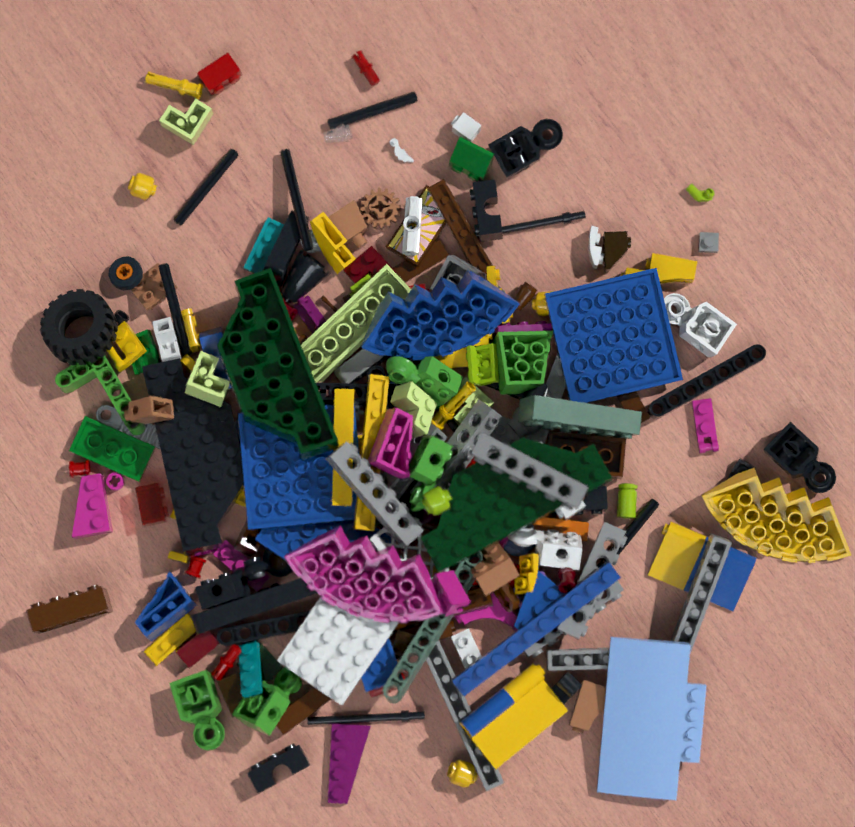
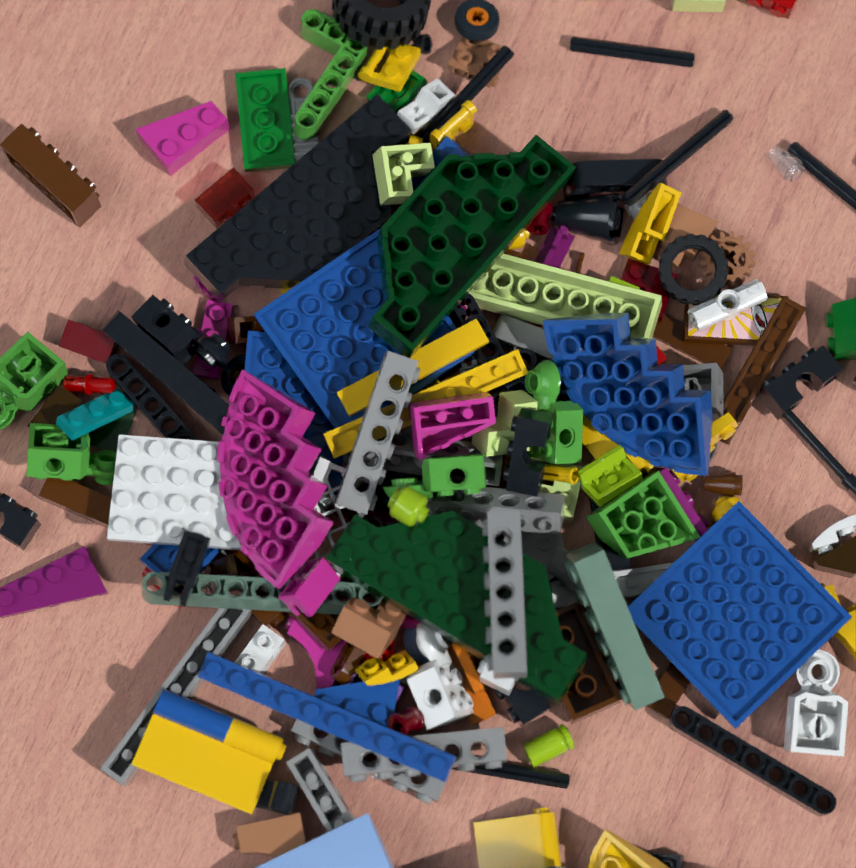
camera: 65 degrees right, 5 degrees down
(79, 468) = (221, 96): red bush -> none
(110, 478) = (230, 137): dark pink bush -> none
(143, 410) = (323, 116): nougat torso -> none
(165, 608) = (113, 280): blue wedge -> none
(171, 640) = (78, 308): yellow tile -> none
(178, 557) = (180, 256): yellow tile -> none
(195, 566) = (181, 288): red bush -> none
(263, 246) = (602, 150): teal plate -> none
(392, 662) = (187, 565): none -> black hinge
(397, 233) = (689, 242): none -> black tyre
(401, 153) = (808, 245): white piece -> none
(404, 716) = (139, 624): black bar -> none
(430, 396) = (524, 473): none -> black arch
(462, 773) = (107, 730): yellow head -> none
(705, 425) = (698, 790): dark pink plate -> none

